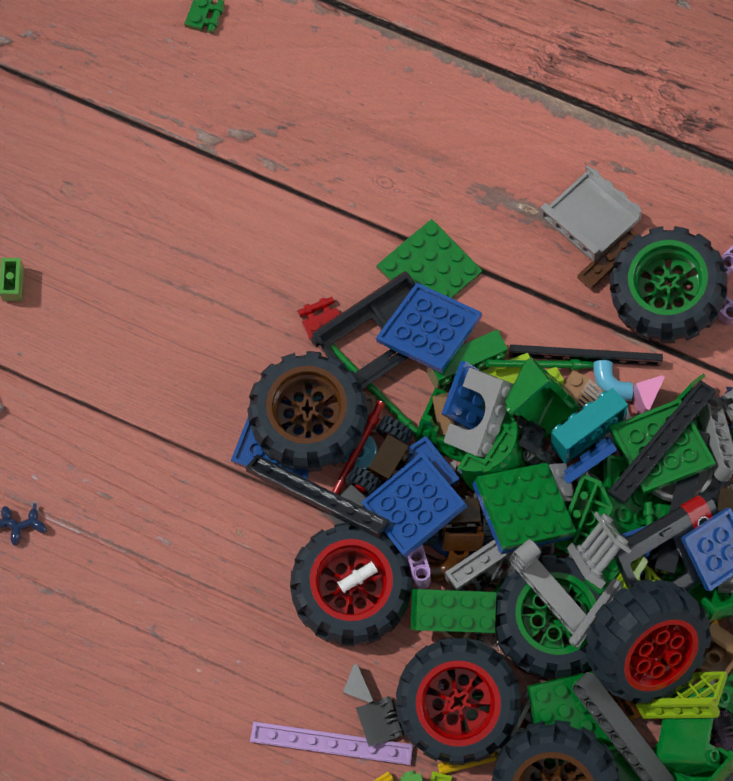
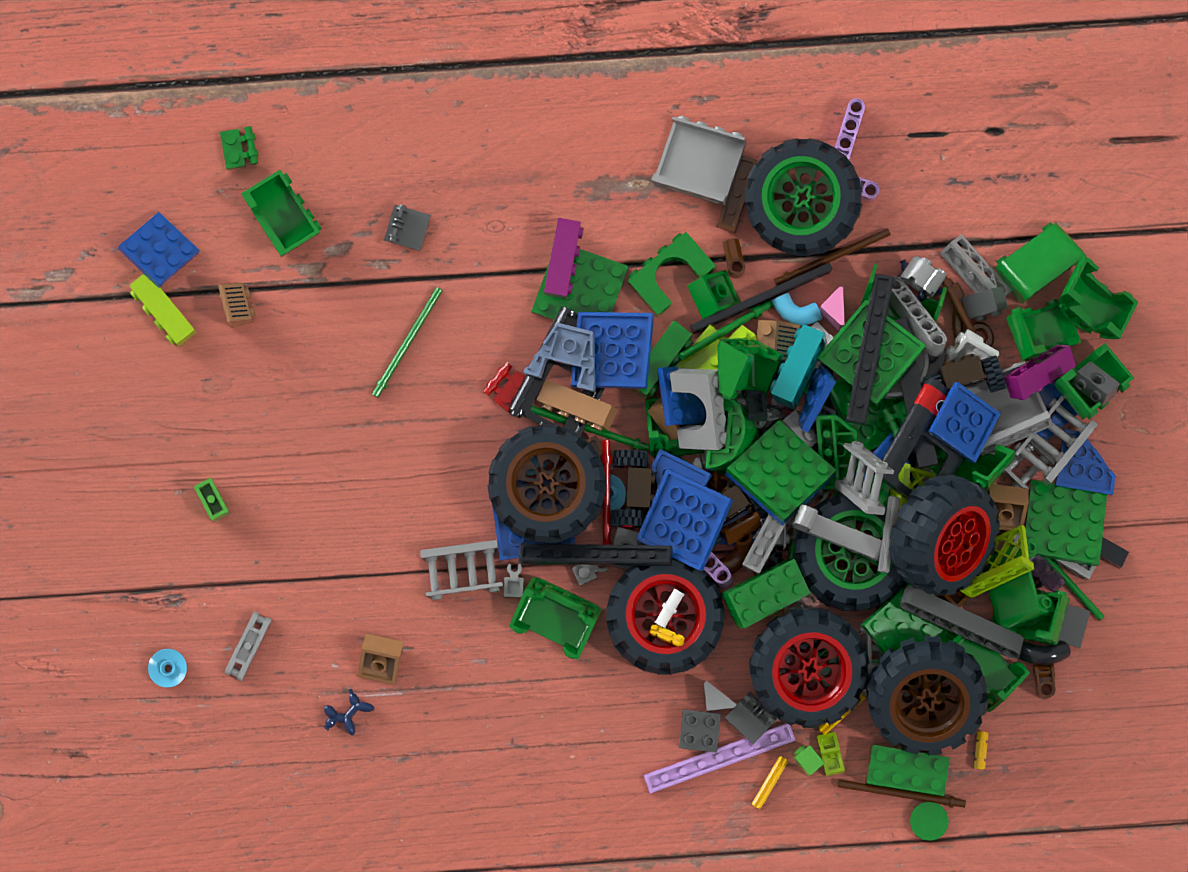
camera: 25 degrees left, 10 degrees up
(64, 105) = (163, 309): none -> lime brick
(76, 491) = (380, 659): none -> medium nougat slope
(89, 57) = (158, 249): none -> blue plate
(127, 131) = (236, 304): none -> medium nougat slope
(207, 438) = (469, 552): none -> light grey fence
(208, 75) = (281, 213): none -> green cylinder
(214, 260) = (406, 343): none -> bar
(230, 488) = (513, 585): none -> light grey plate
(252, 534) = (556, 616): none -> green windscreen
(301, 512) = (586, 573): none -> light grey plate
(309, 144) = (407, 227): none -> dark grey hinge
(326, 707) = (699, 731): none -> dark grey hinge
(342, 600) = (667, 635): none -> yellow axle
(372, 360) = (577, 405): none -> medium nougat brick
(392, 305) = (570, 347): none -> sand blue wing
(427, 232) = (562, 258): none -> magenta brick
(536, 279) = (683, 250): none -> green arch
(544, 328) = (713, 293): none -> green slope
(579, 309) = (734, 256): none -> reddish brown piece
(674, 353) = (831, 257): none -> reddish brown bar

